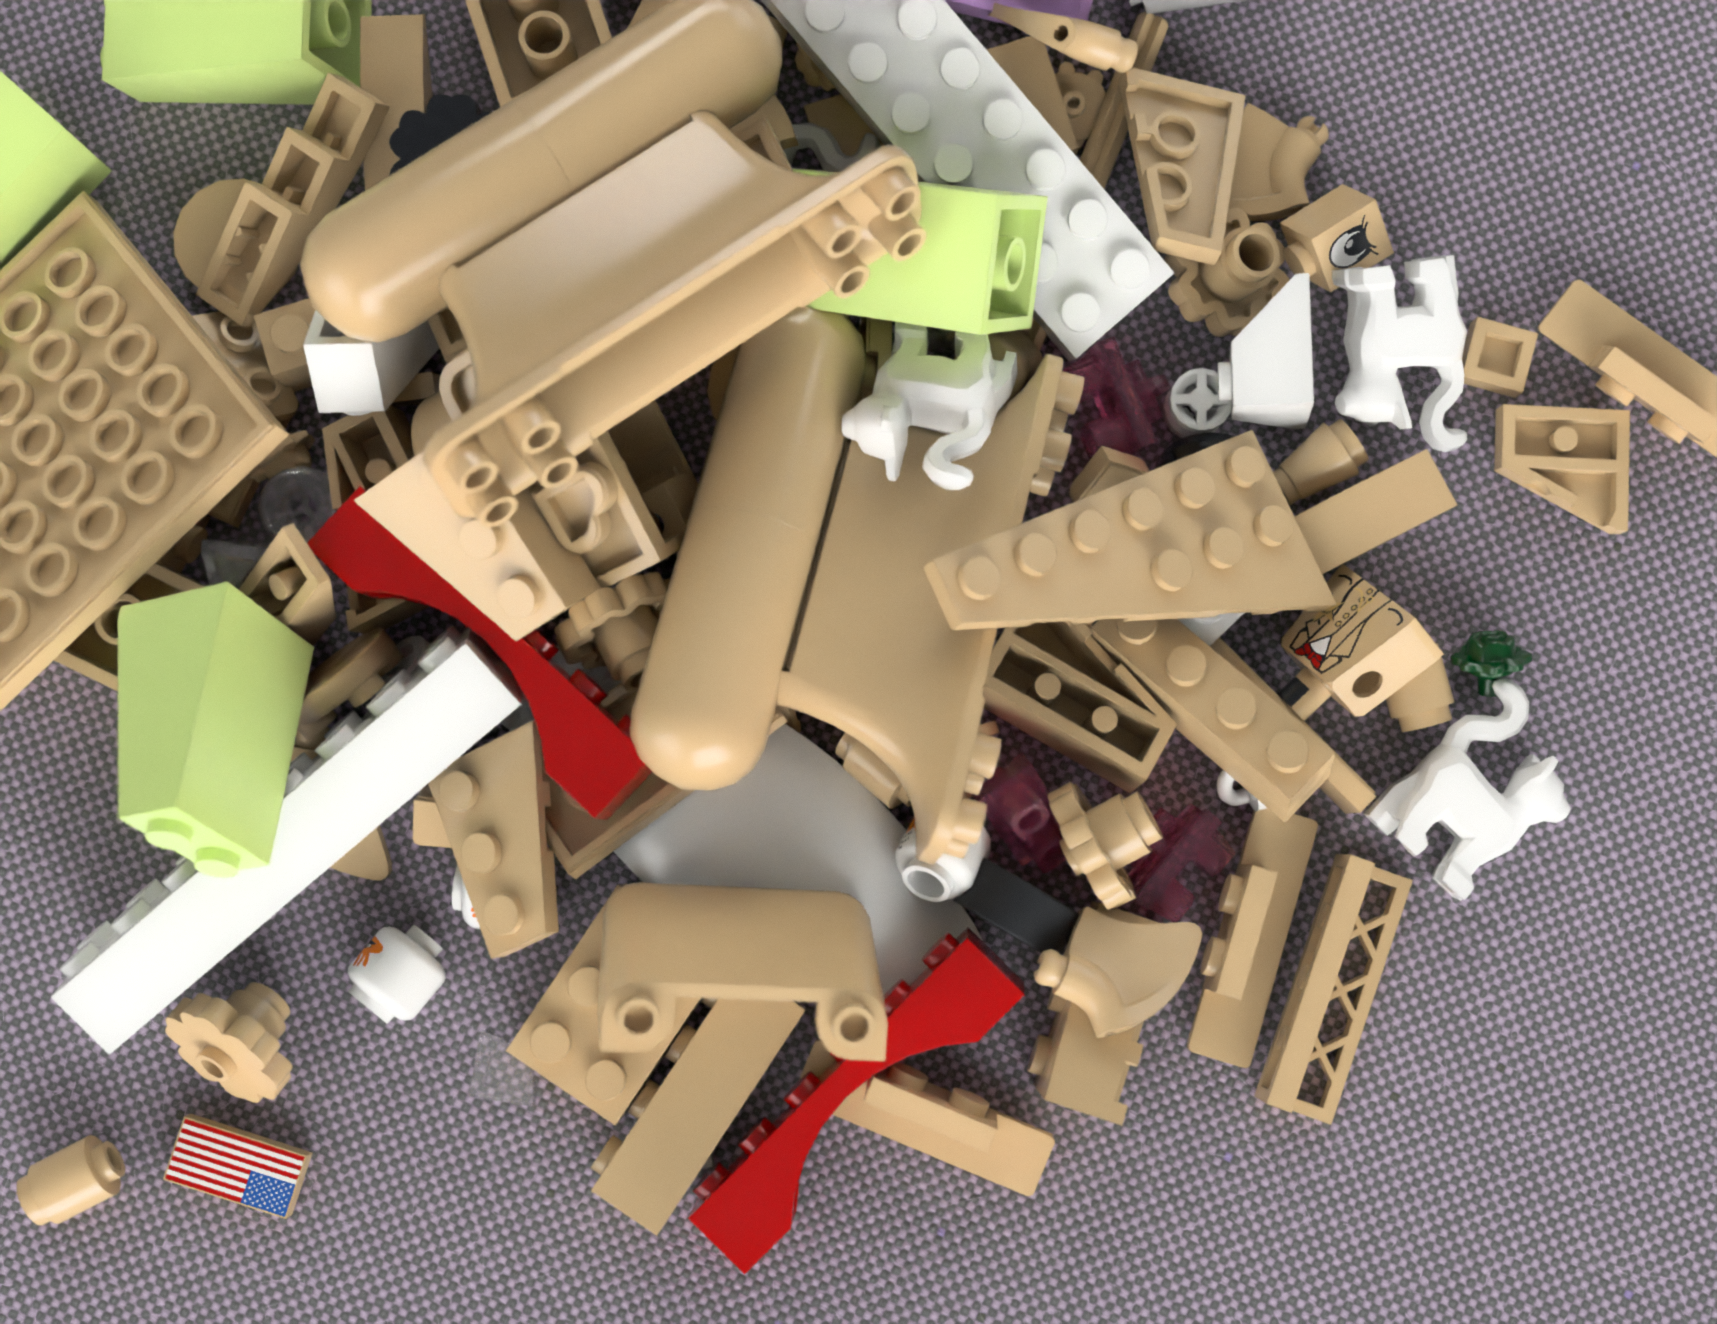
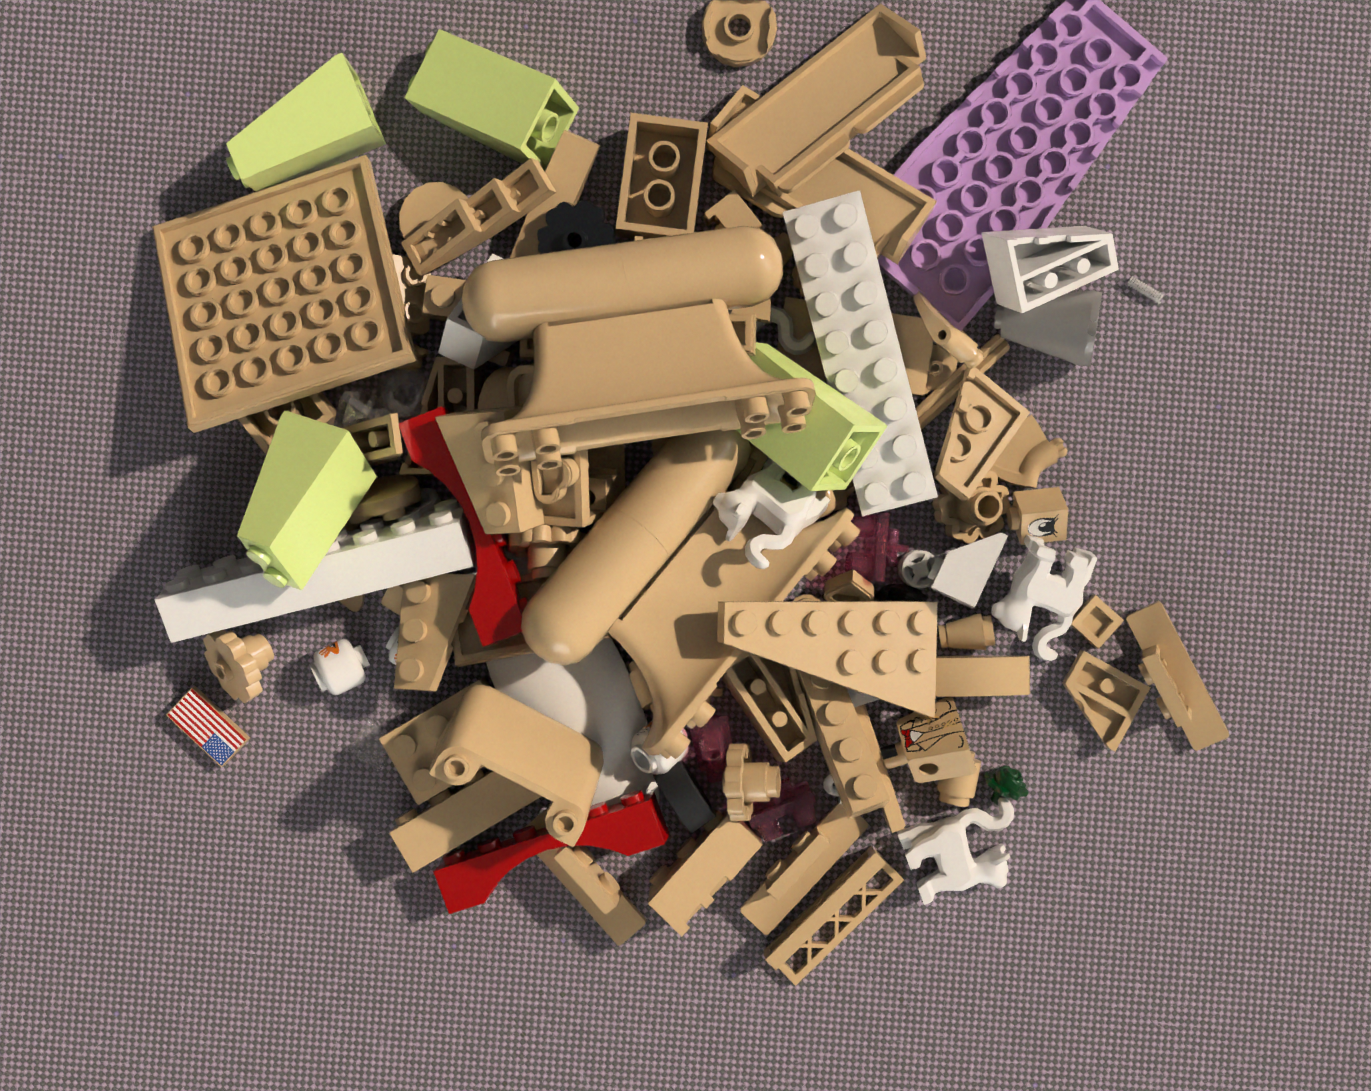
camera: 25 degrees right, 5 degrees up
(71, 1181) = (117, 692): tan brick -> none
(1120, 968) = (721, 854): tan arm -> none

